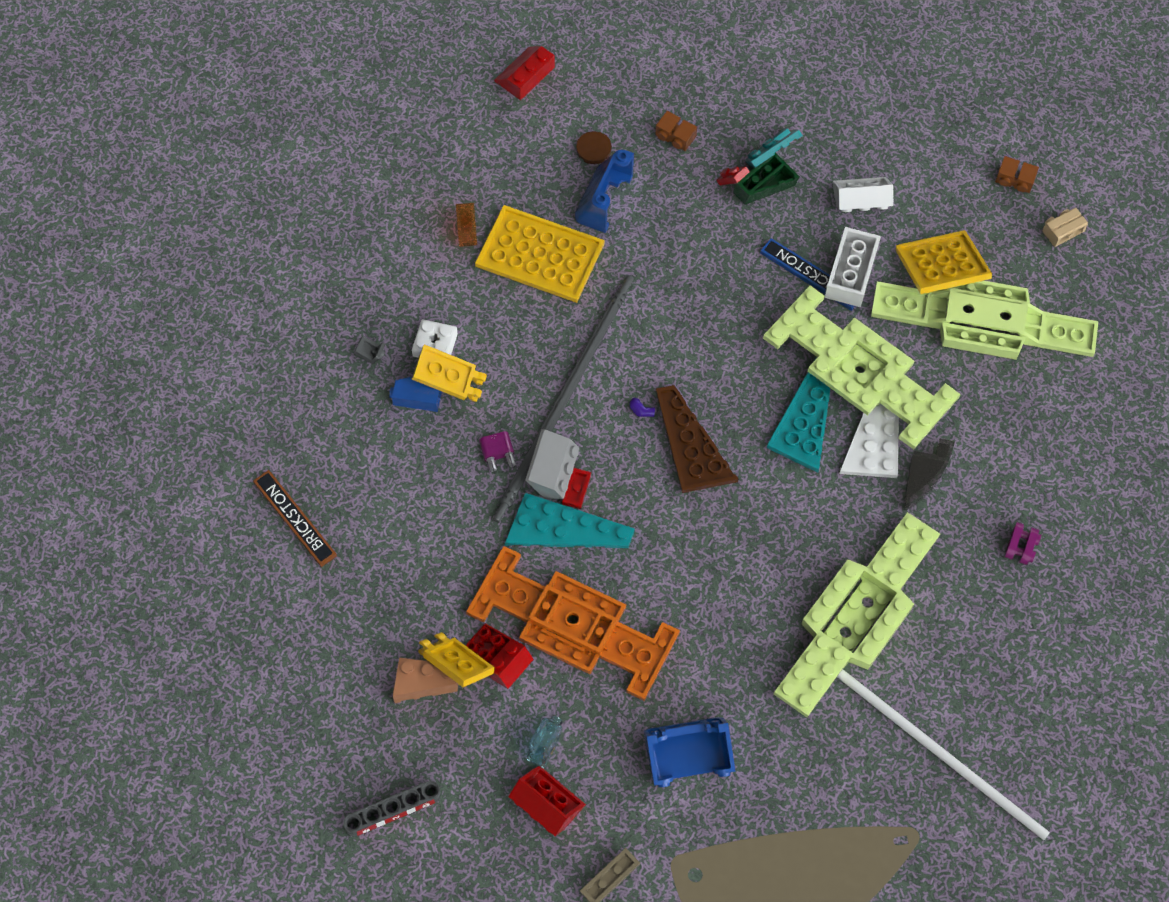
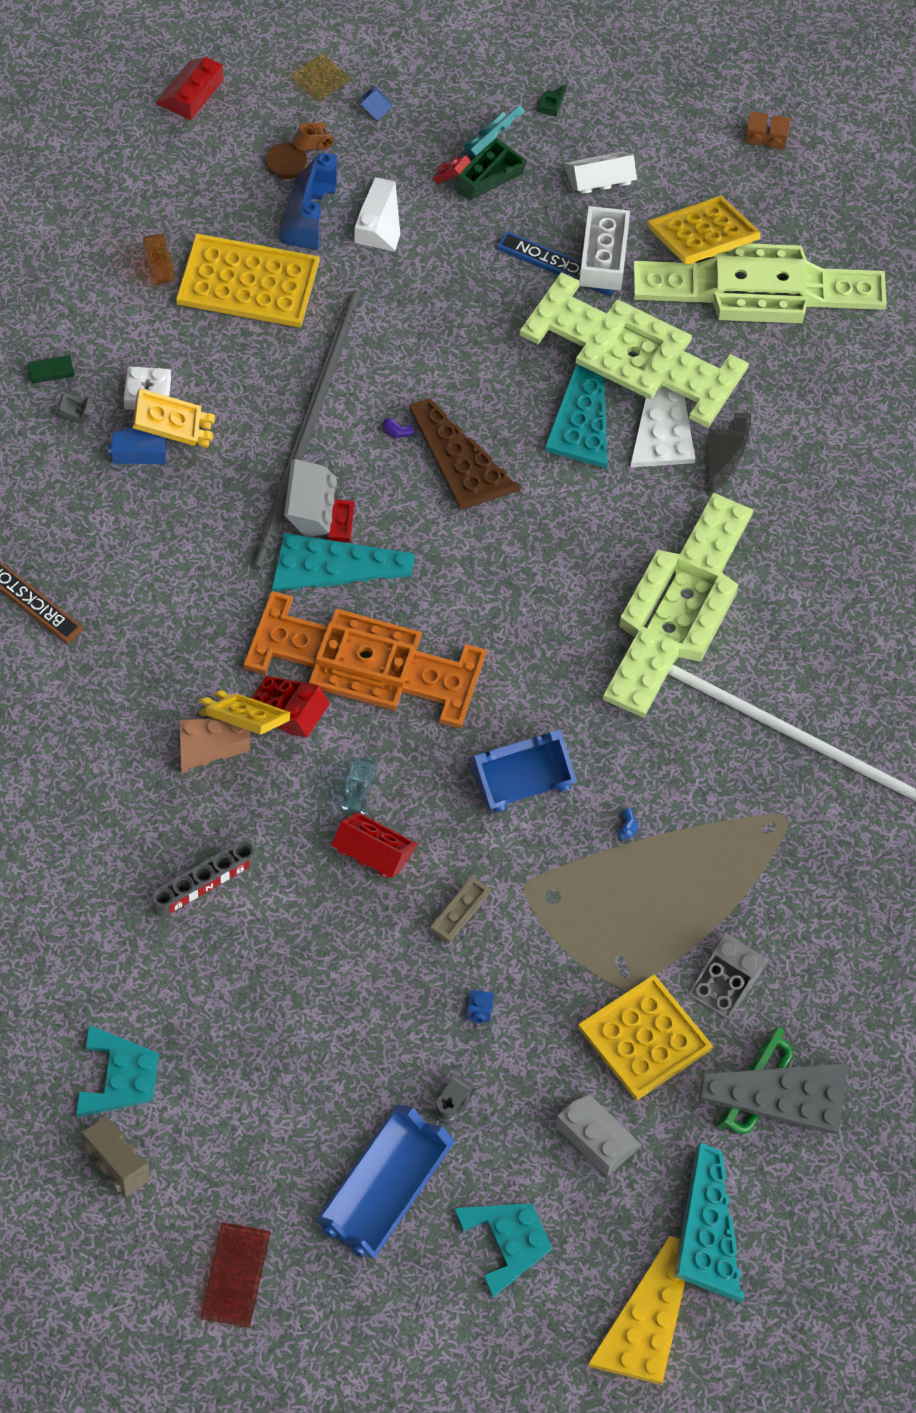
camera: 15 degrees left, 5 degrees down
(357, 311) = (50, 369): none -> dark green tile
(497, 447) = (241, 491): magenta piece -> none
(619, 129) = (312, 137): none -> dark orange piece
(638, 75) = (321, 77): none -> clear yellow tile
(662, 211) = (379, 217): none -> white wedge
(679, 104) = (375, 102): none -> panel
(680, 135) = (382, 136): dark orange piece -> none
(776, 819) = (630, 826): none -> blue arm
(832, 122) = (551, 101): none -> dark green tile
(1032, 539) = (851, 518): magenta brick -> none
(1064, 226) = (830, 178): tan brick -> none

